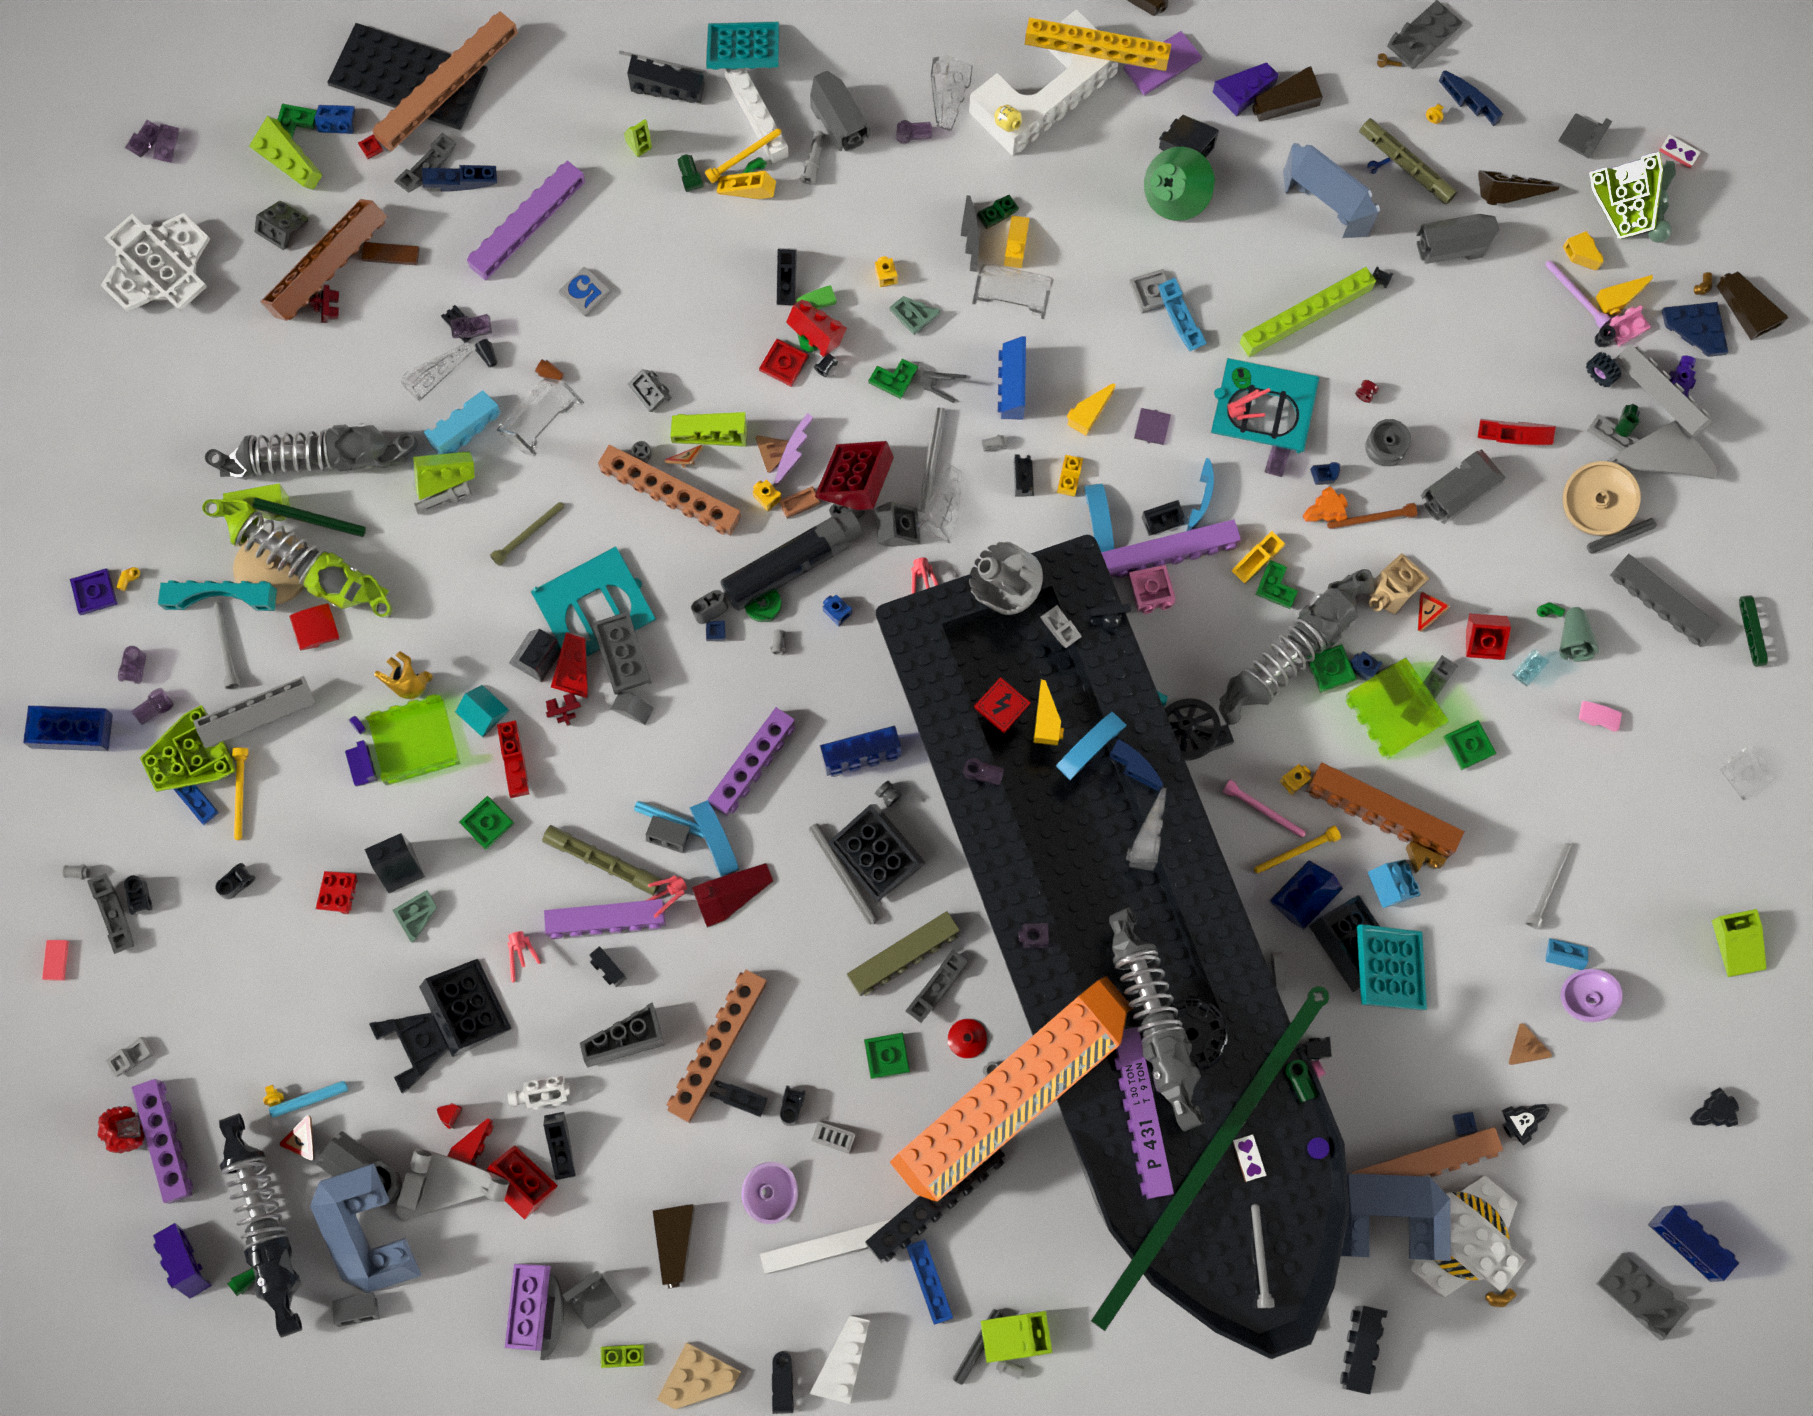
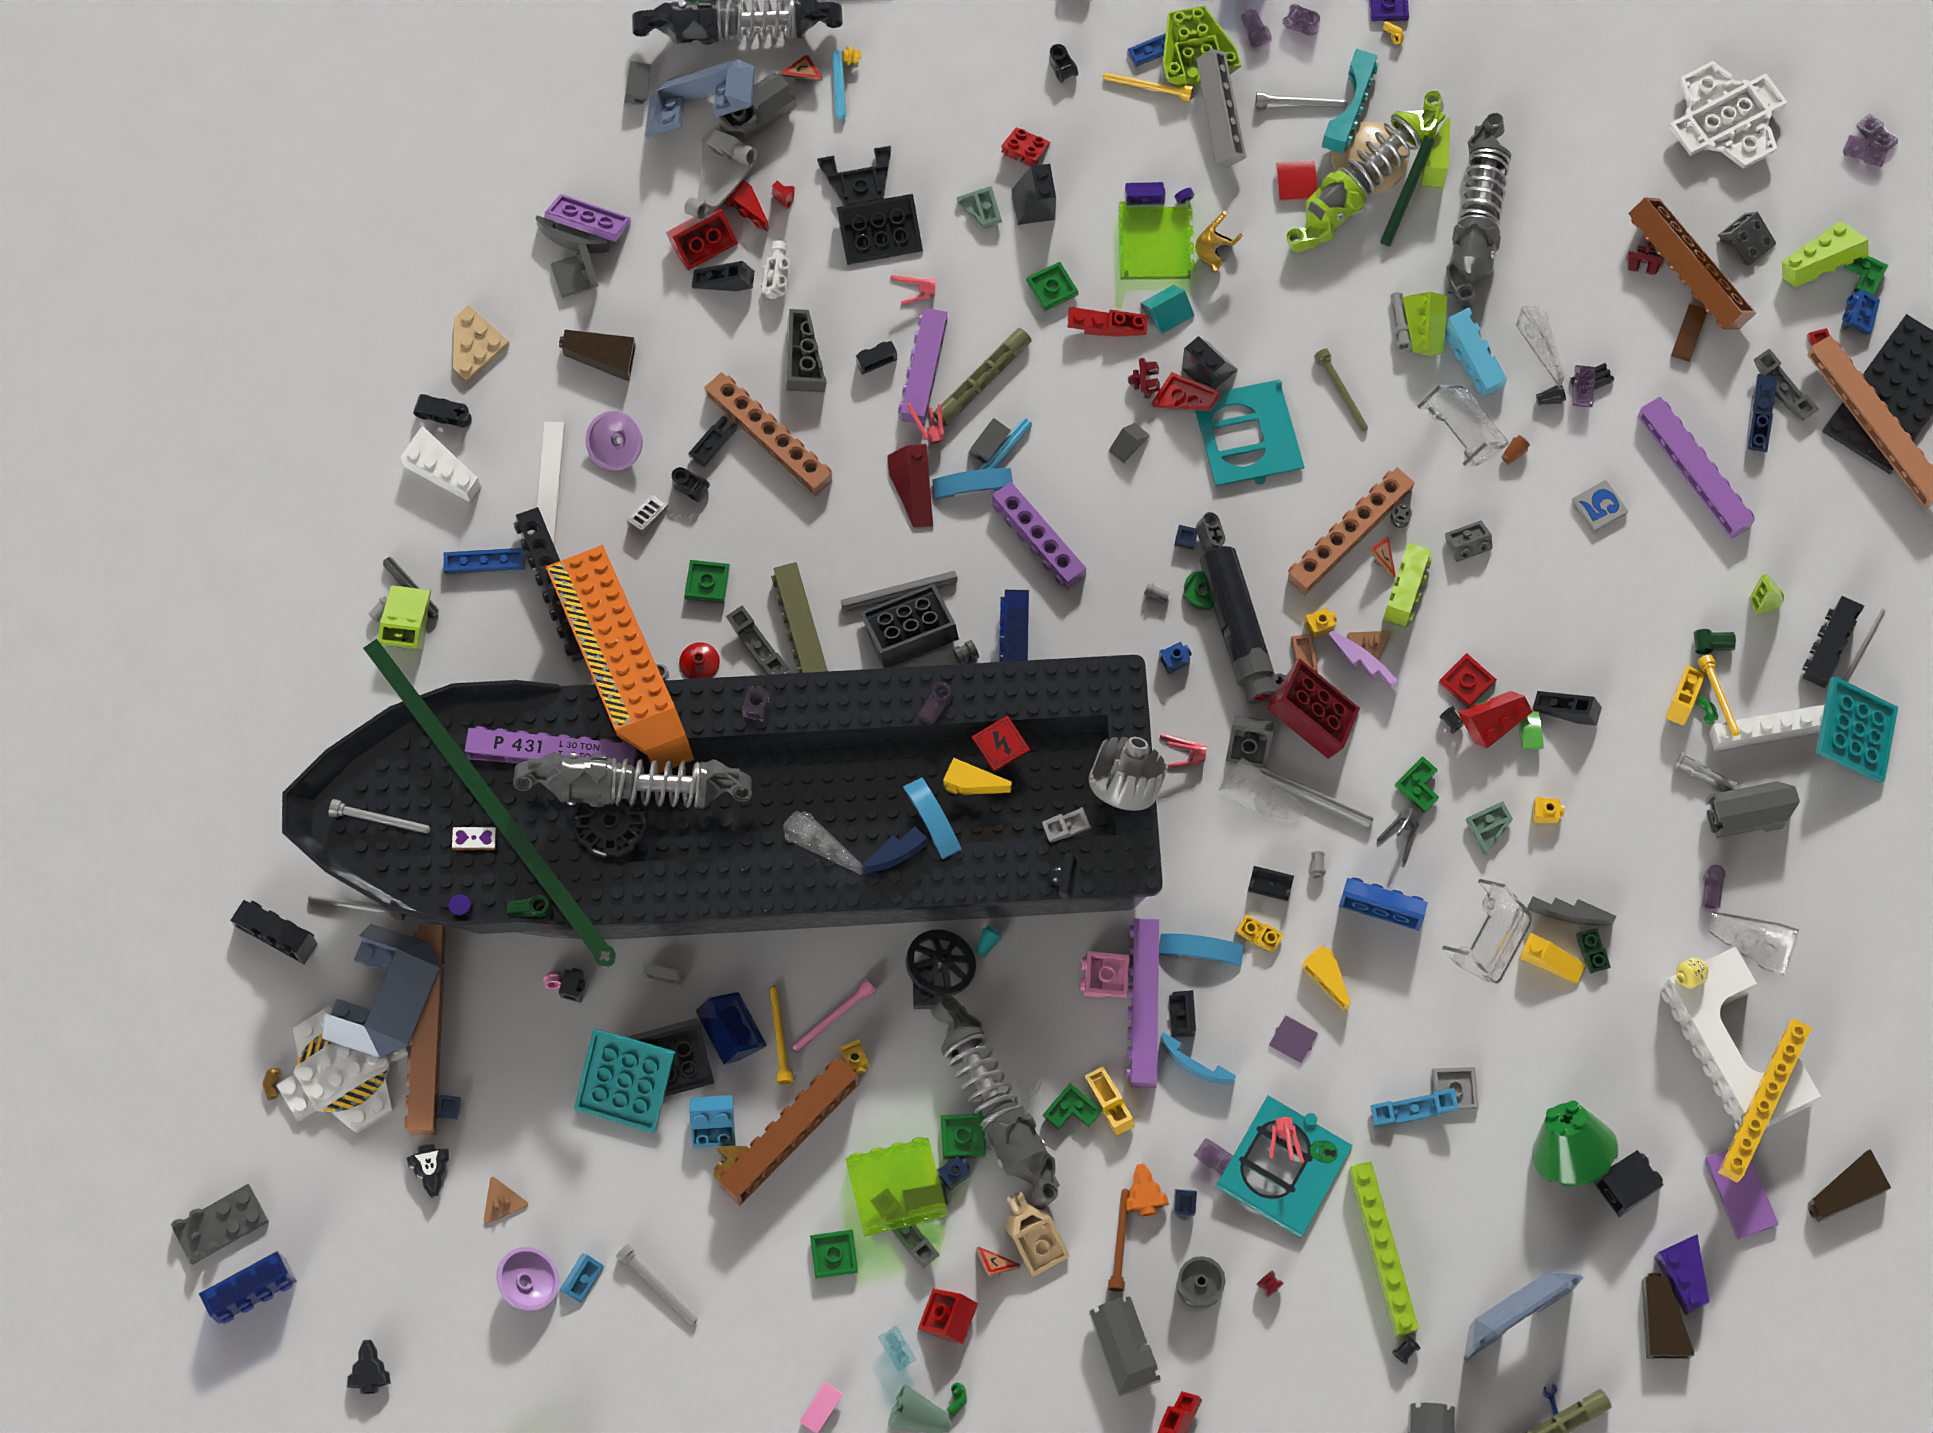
camera: 110 degrees right, 5 degrees down
(621, 652) = (1186, 442): dark grey hinge -> none
(621, 1356) = (517, 286): lime slope -> none

